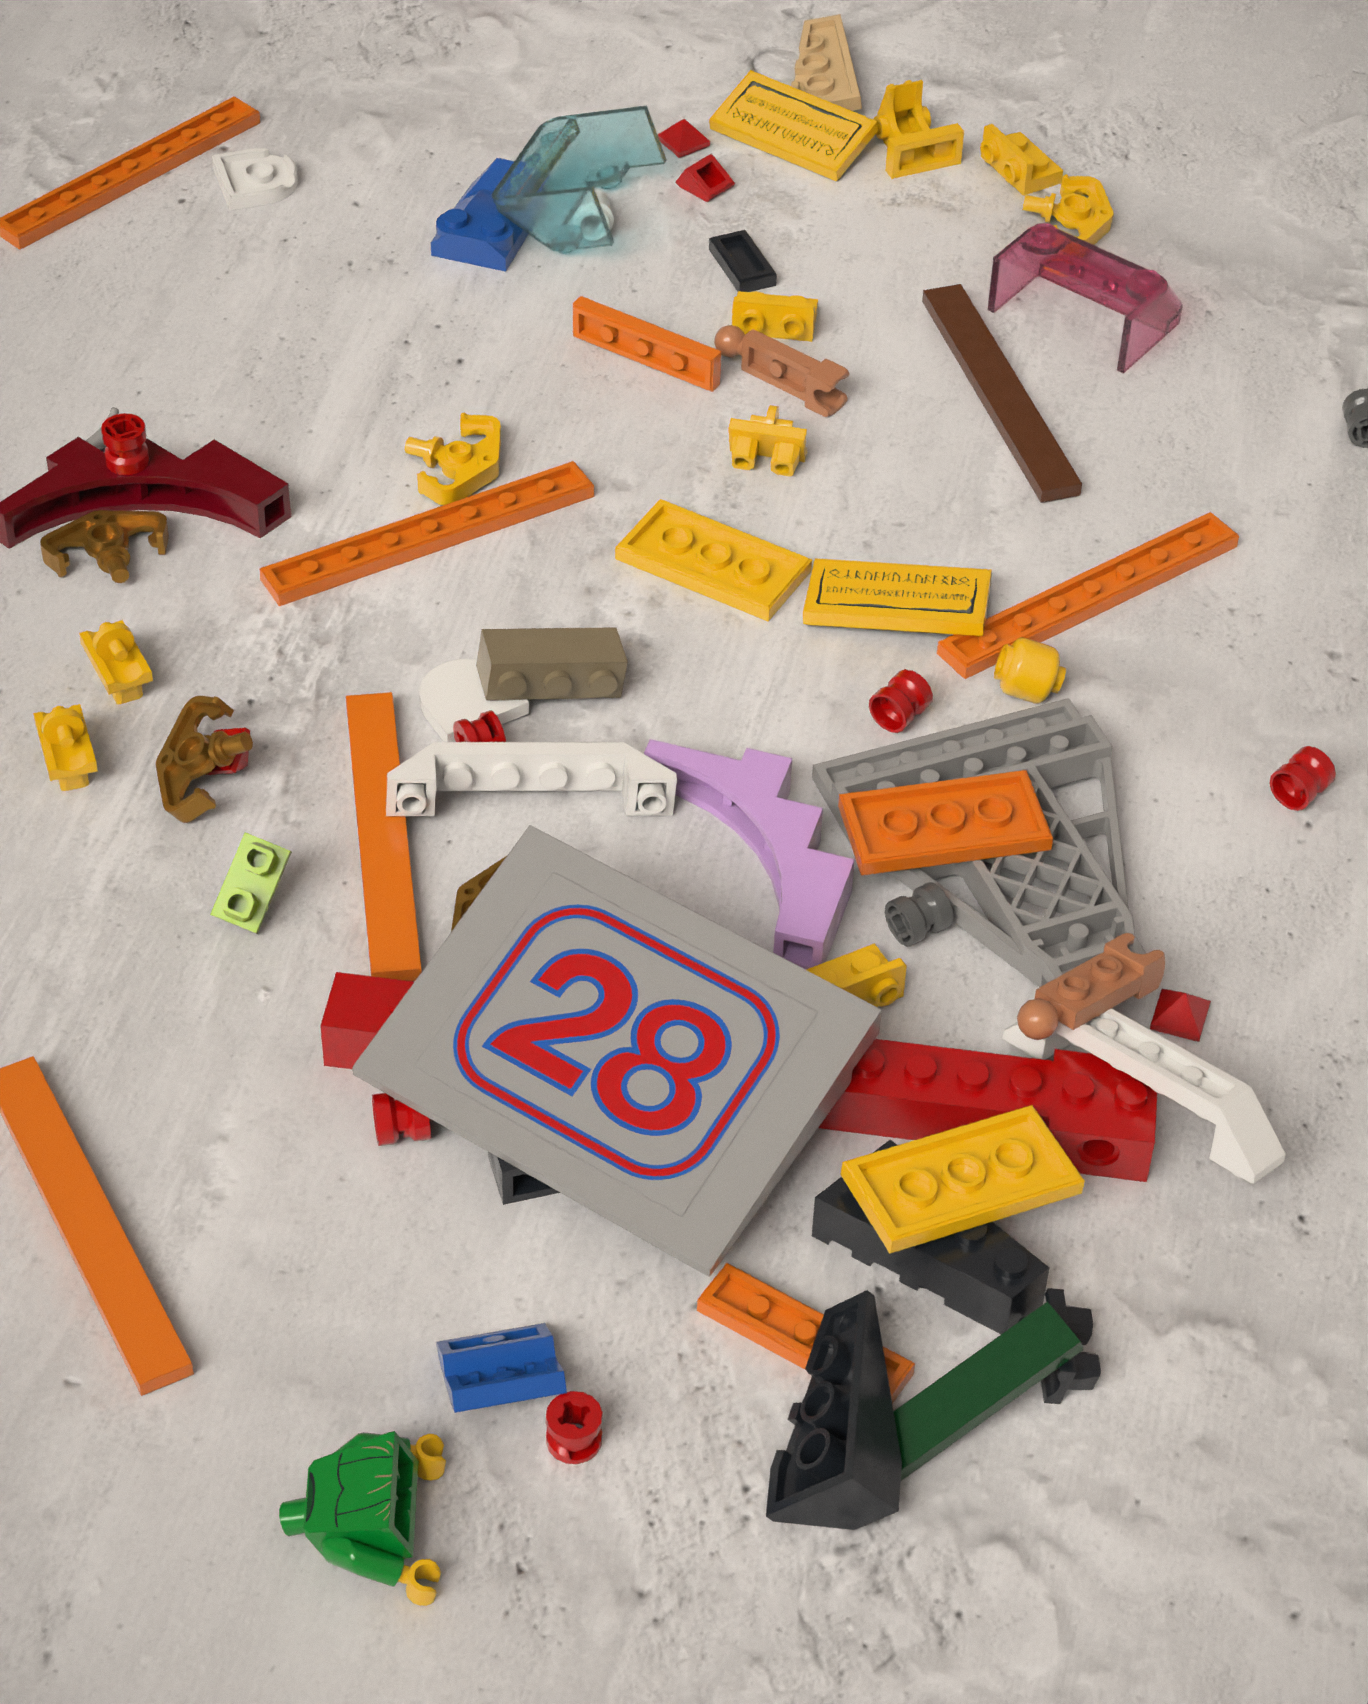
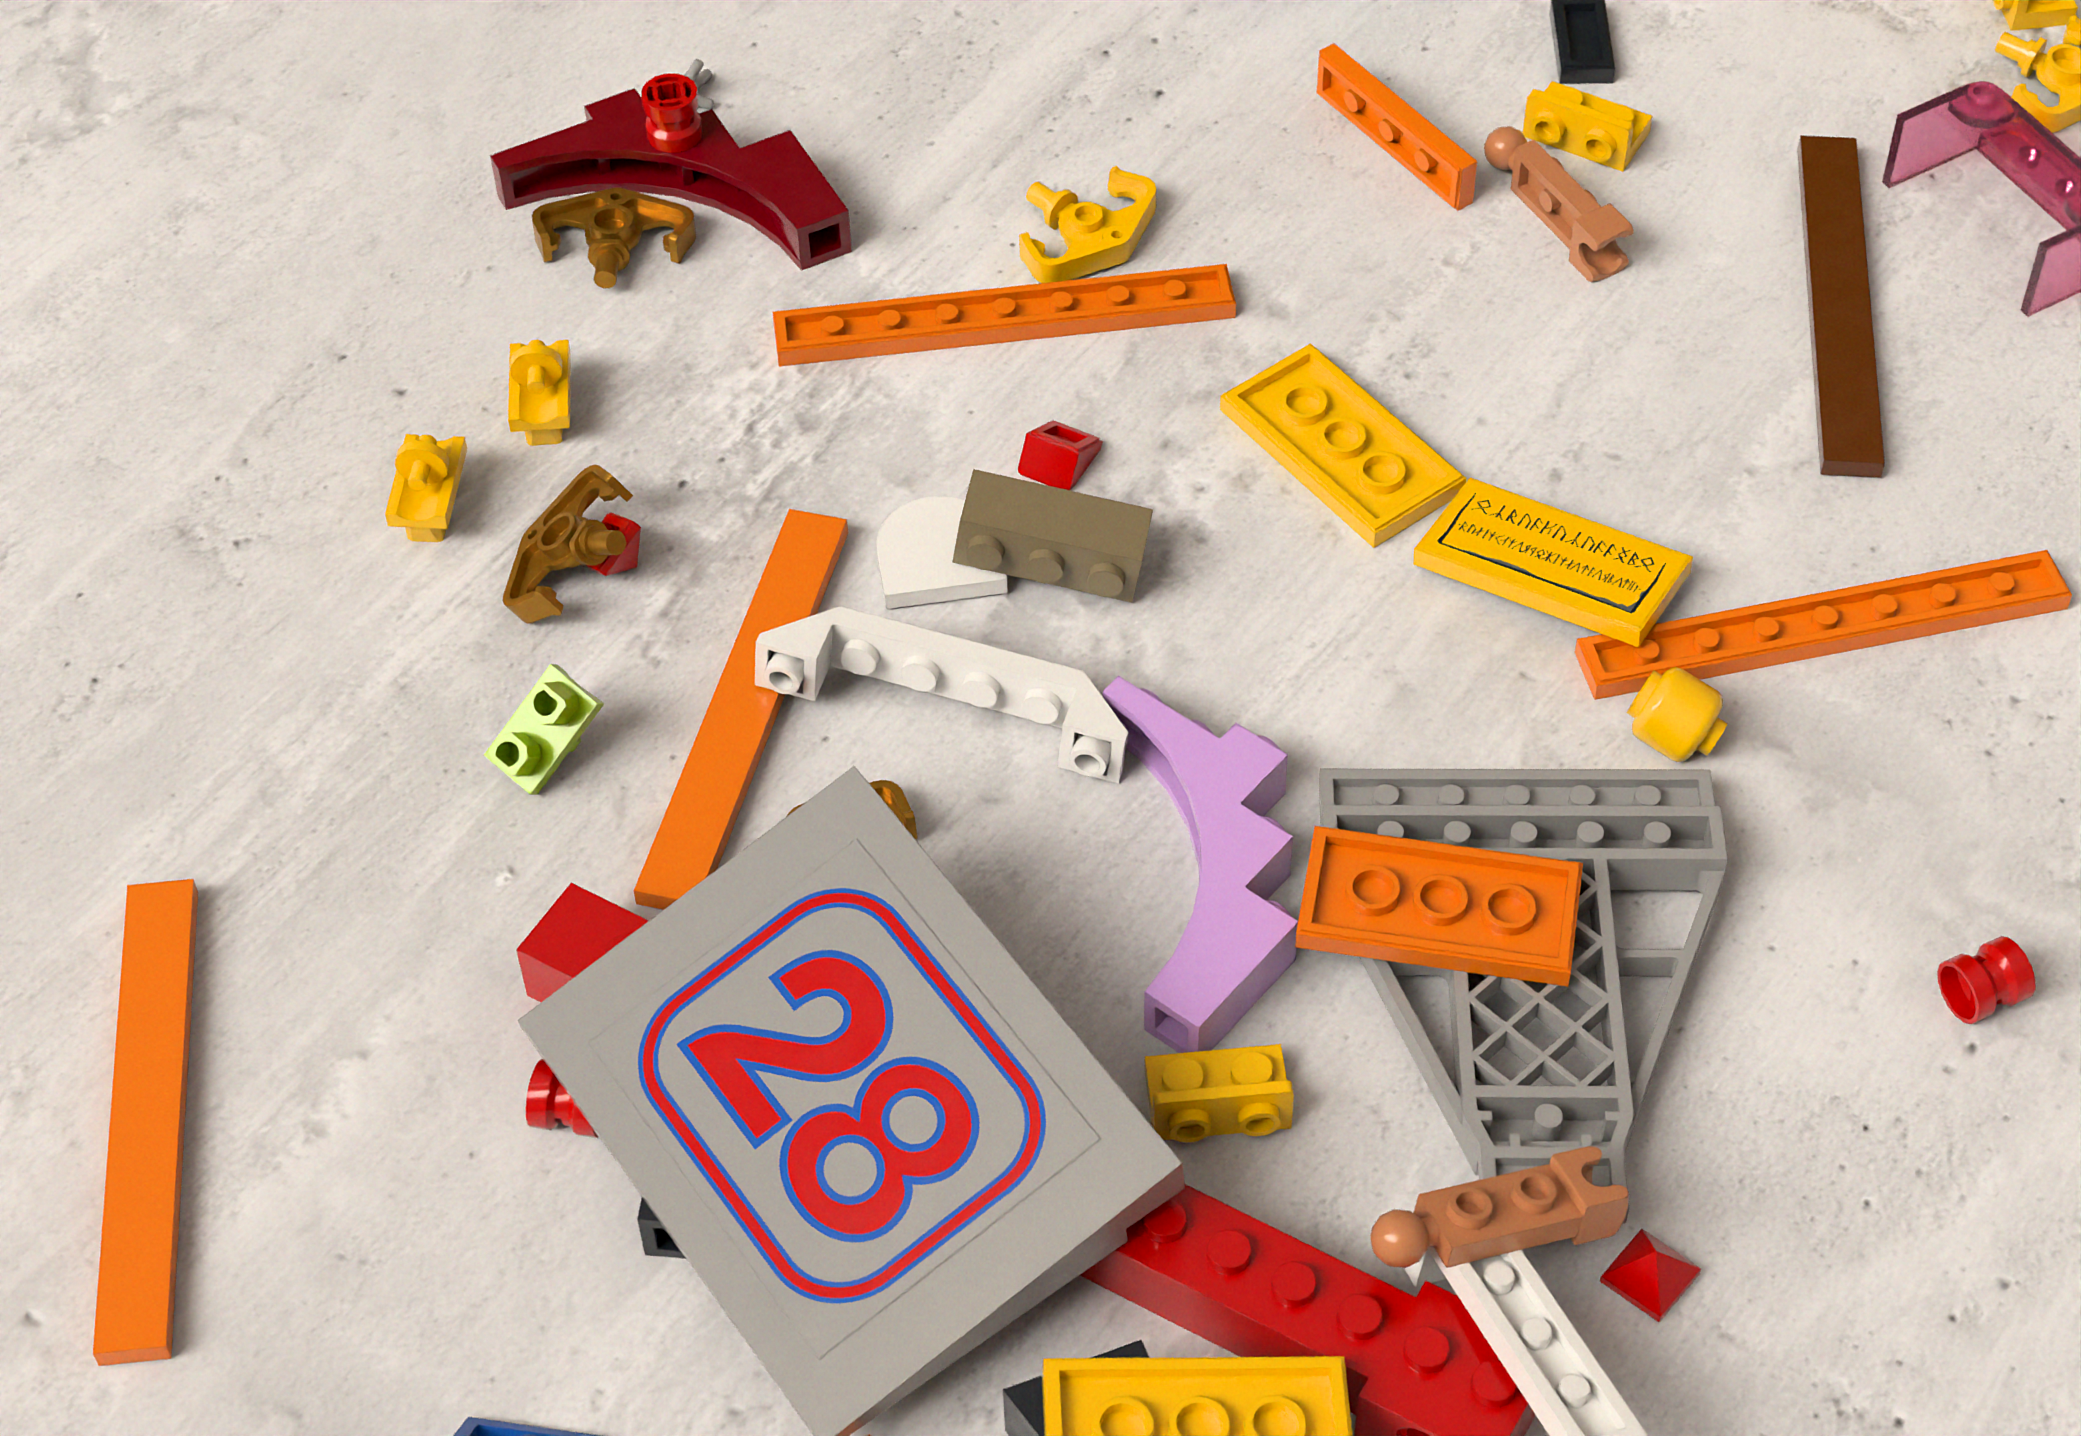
camera: 25 degrees right, 5 degrees up
(484, 729) = (914, 602): red wheel -> none
(518, 611) = (1057, 454): none -> red slope
(767, 438) = (1487, 291): yellow hips -> none
(900, 701) = (1486, 708): red wheel -> none
(916, 915) = (1350, 1022): dark grey wheel -> none

